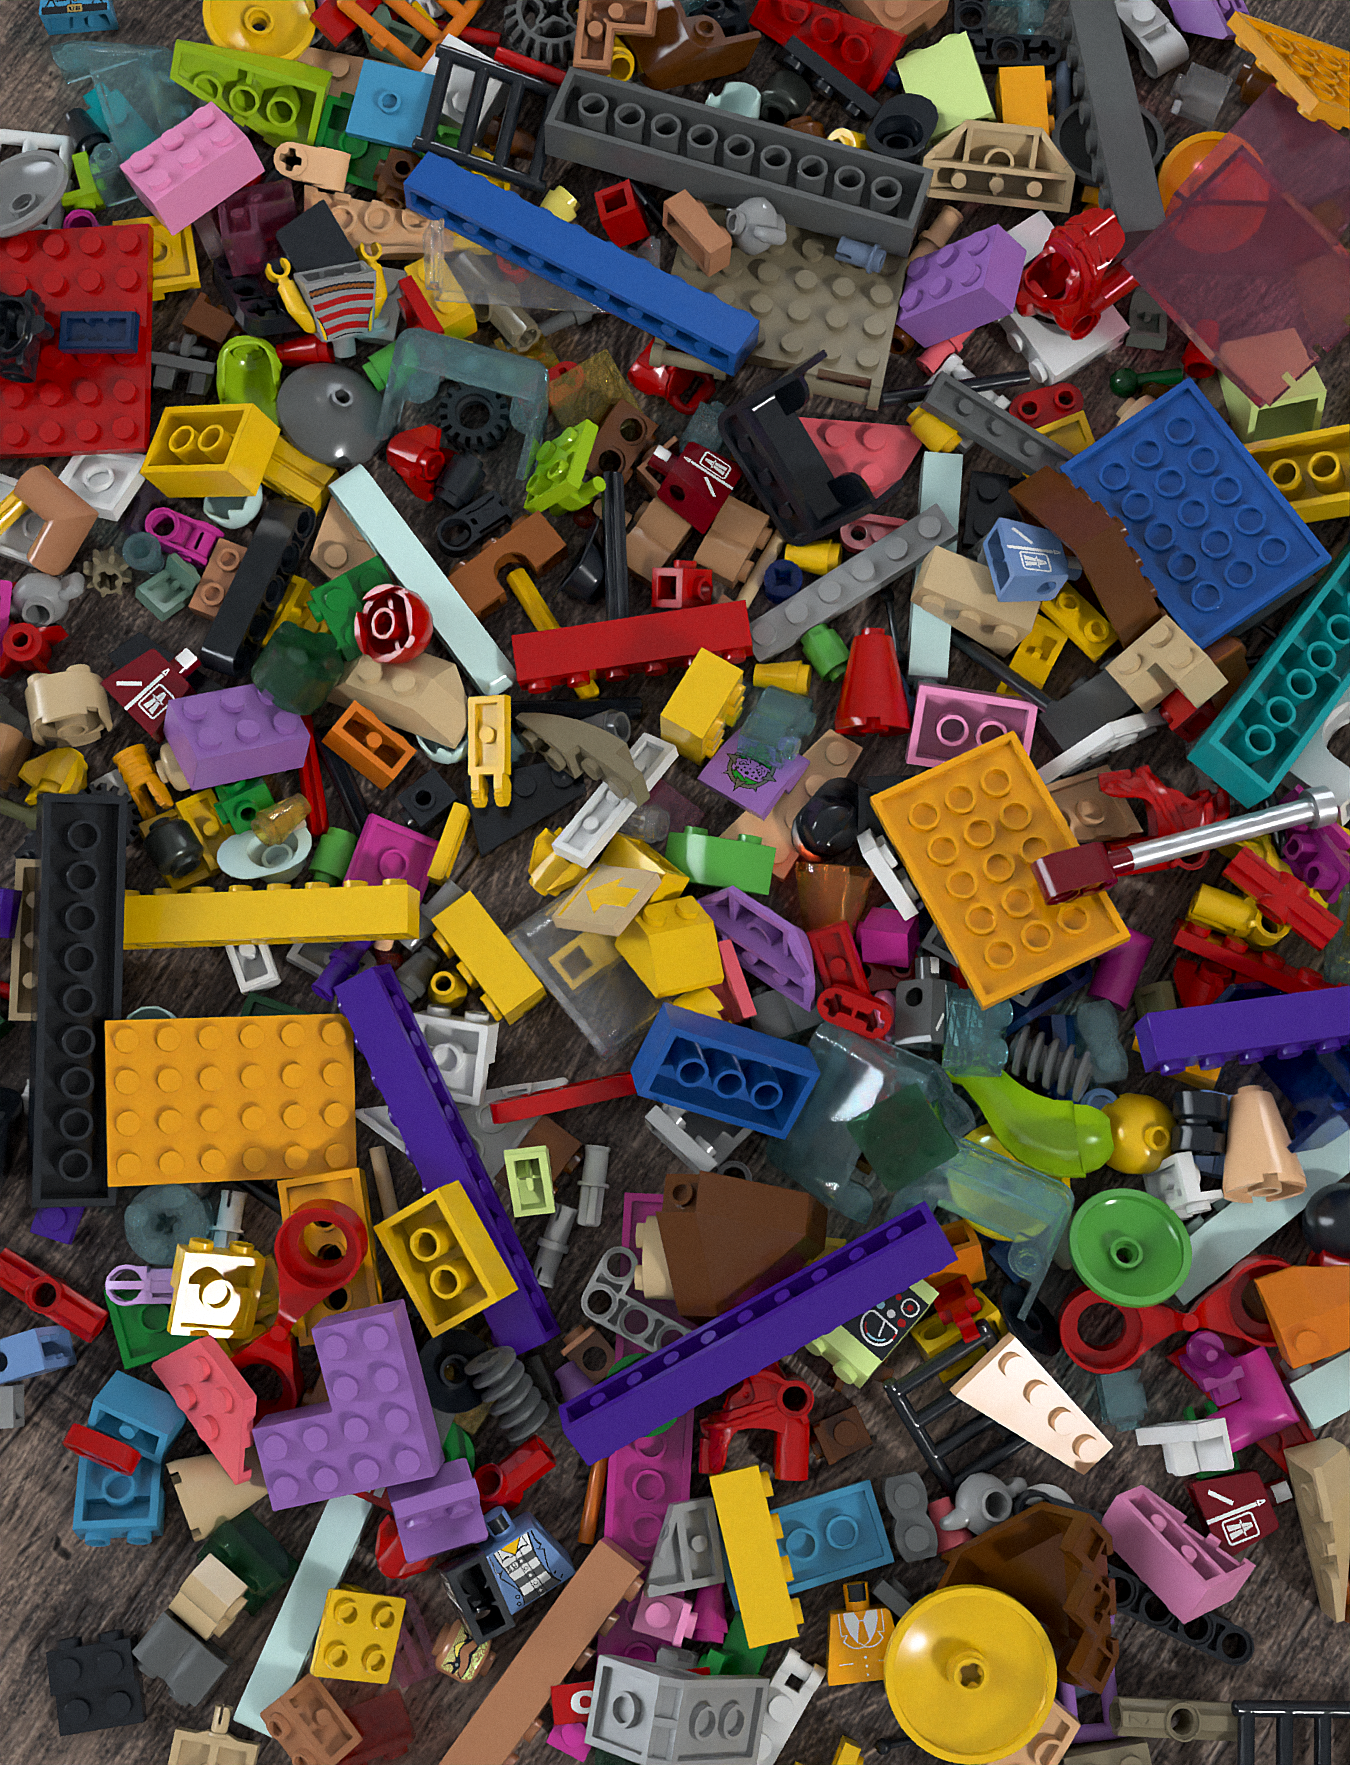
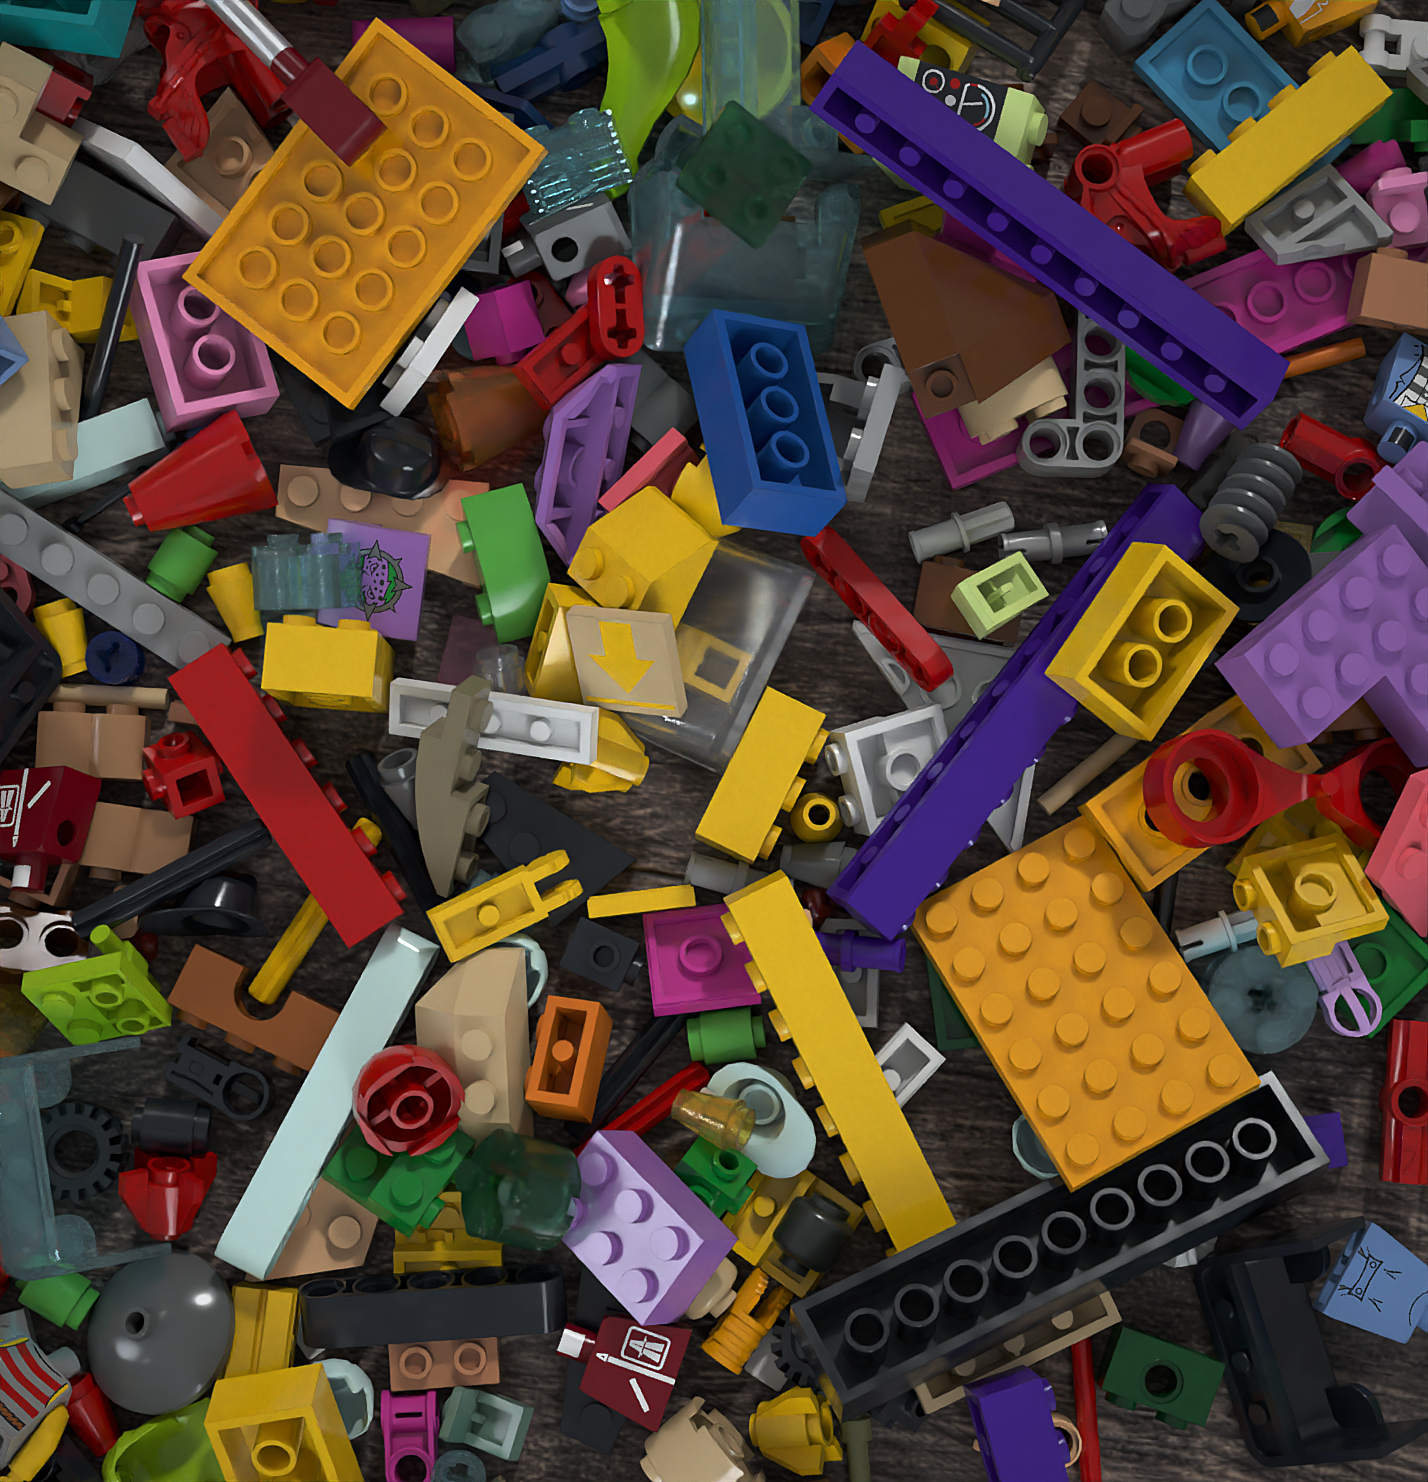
camera: 120 degrees left, 5 degrees up
(1050, 1062) = (563, 60): dark grey piece -> none

